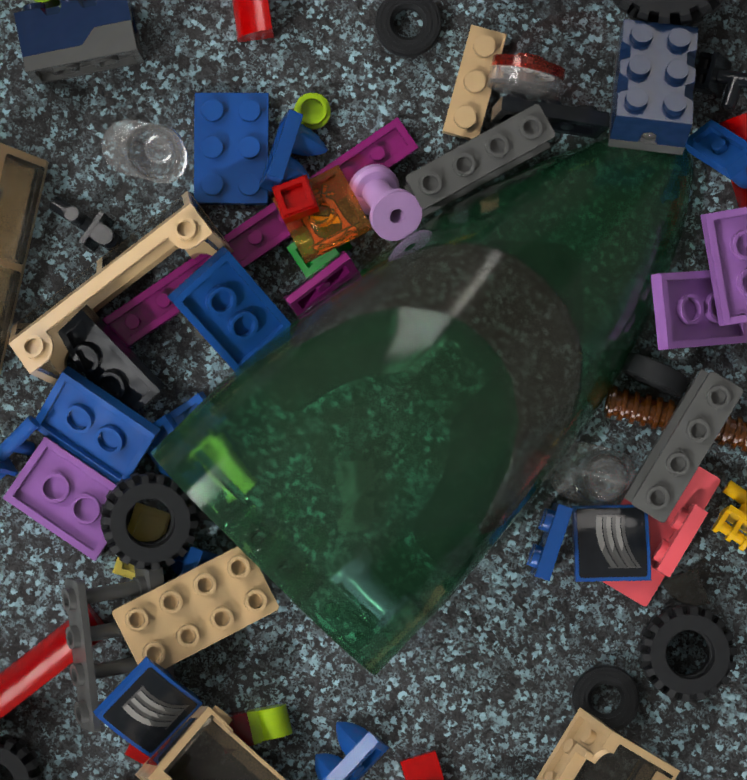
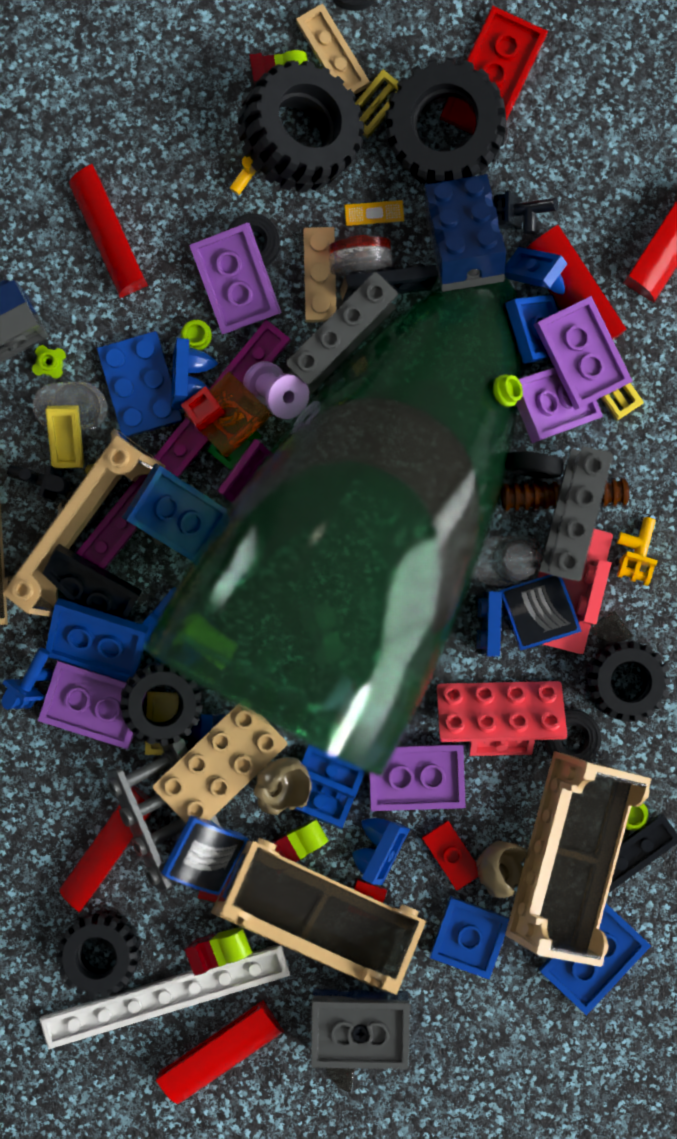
camera: 15 degrees left, 0 degrees up
(128, 183) = (65, 436): none -> light yellow tile
(140, 101) = (55, 368): none -> lime plate
(259, 654) = (282, 785): none -> dark tan hair
(306, 670) = (333, 786): none -> blue slope
(376, 60) = (235, 278): none -> medium lavender plate
(418, 694) = (420, 779): none -> medium lavender plate
(531, 649) = (501, 715): none -> coral bracket
(557, 30) = (374, 213): none -> yellow sticker
(647, 282) = (507, 390): none -> lime plate
(691, 201) = (523, 316): none -> blue plate

